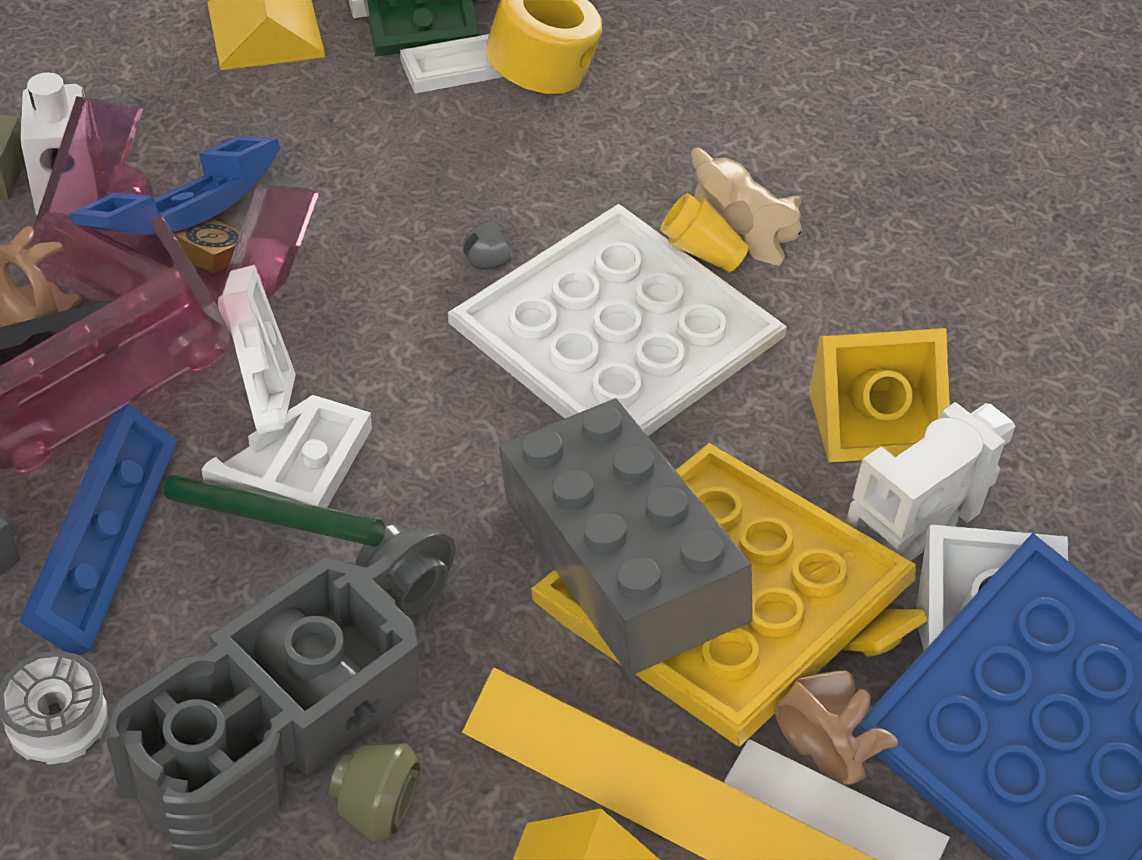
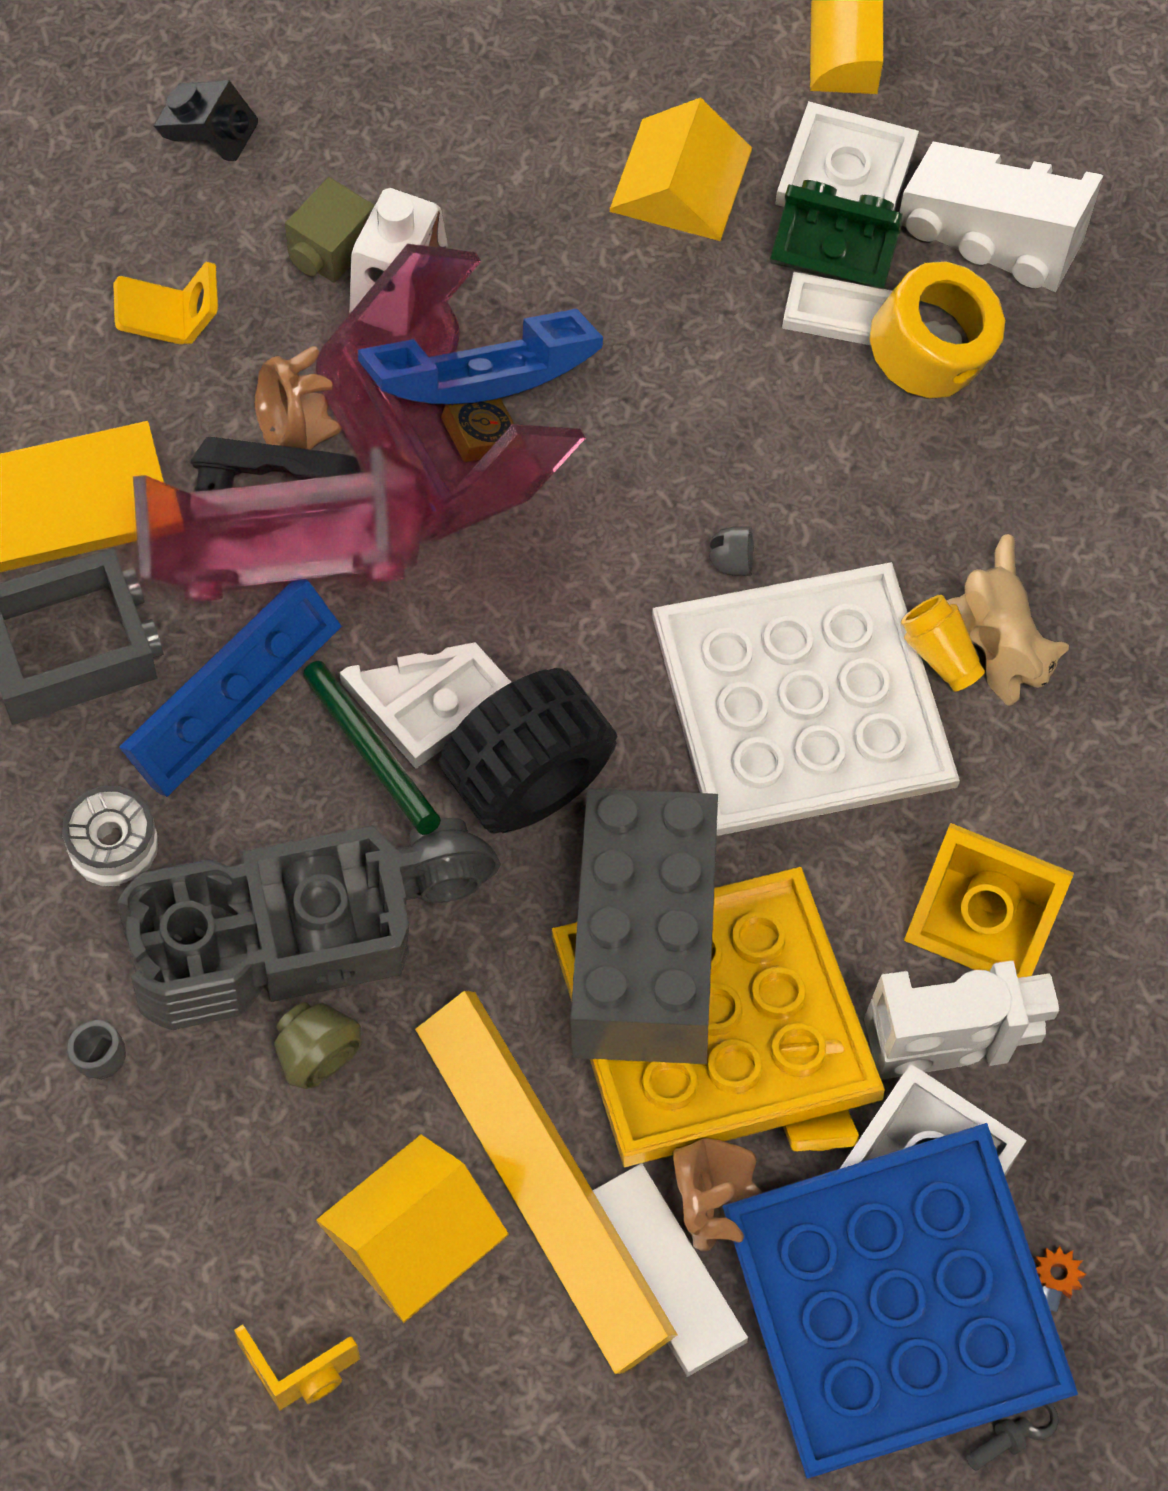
camera: 30 degrees right, 15 degrees up
(259, 348) = (445, 581): white wing -> none
(423, 441) = (528, 750): none -> black tyre

